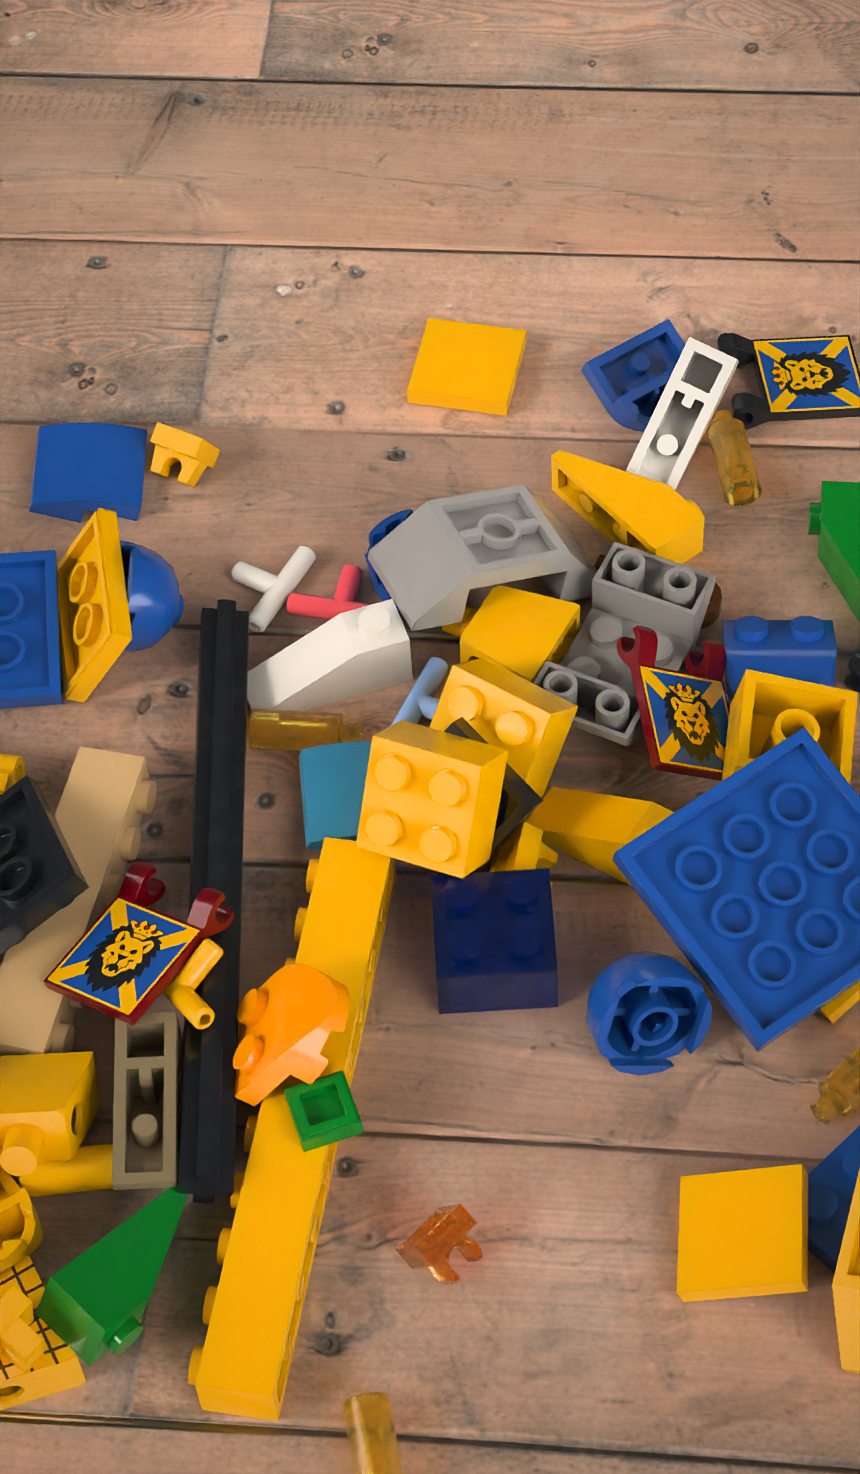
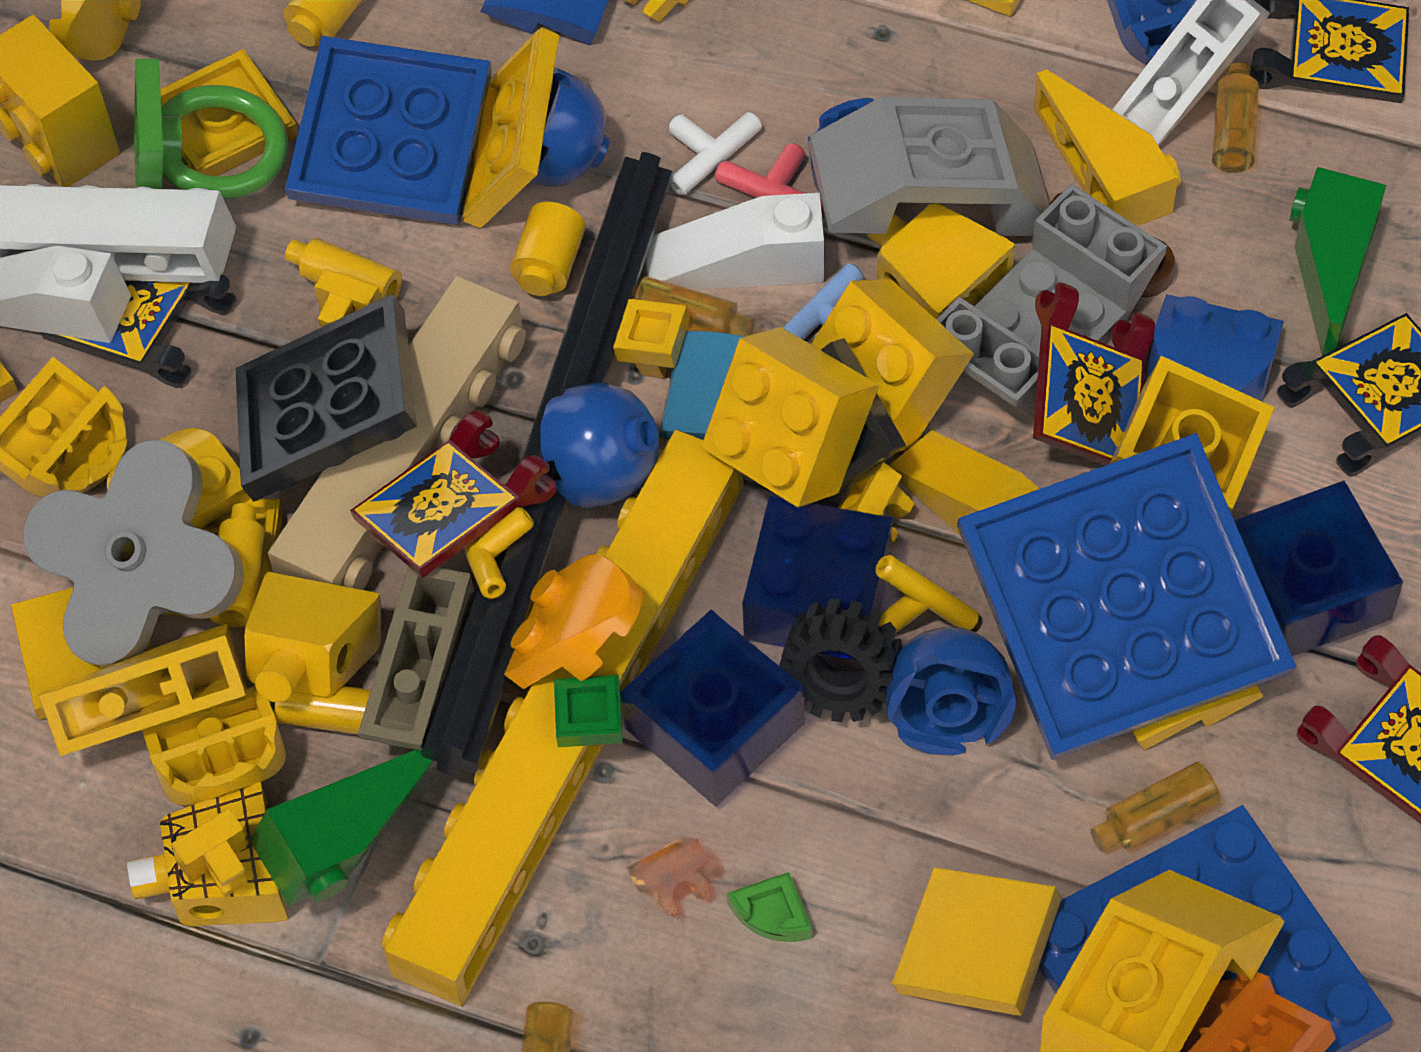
camera: 15 degrees right, 5 degrees up
(154, 704) = (547, 248): none -> yellow brick
(260, 864) = (599, 443): none -> blue cylinder
(275, 760) = (651, 336): none -> yellow tile
(436, 1080) = (713, 707): none -> clear blue brick
(540, 1035) = (849, 633): none -> black tyre
(543, 1253) = (772, 909): none -> bright green tile
(593, 933) = (919, 597): none -> yellow piece

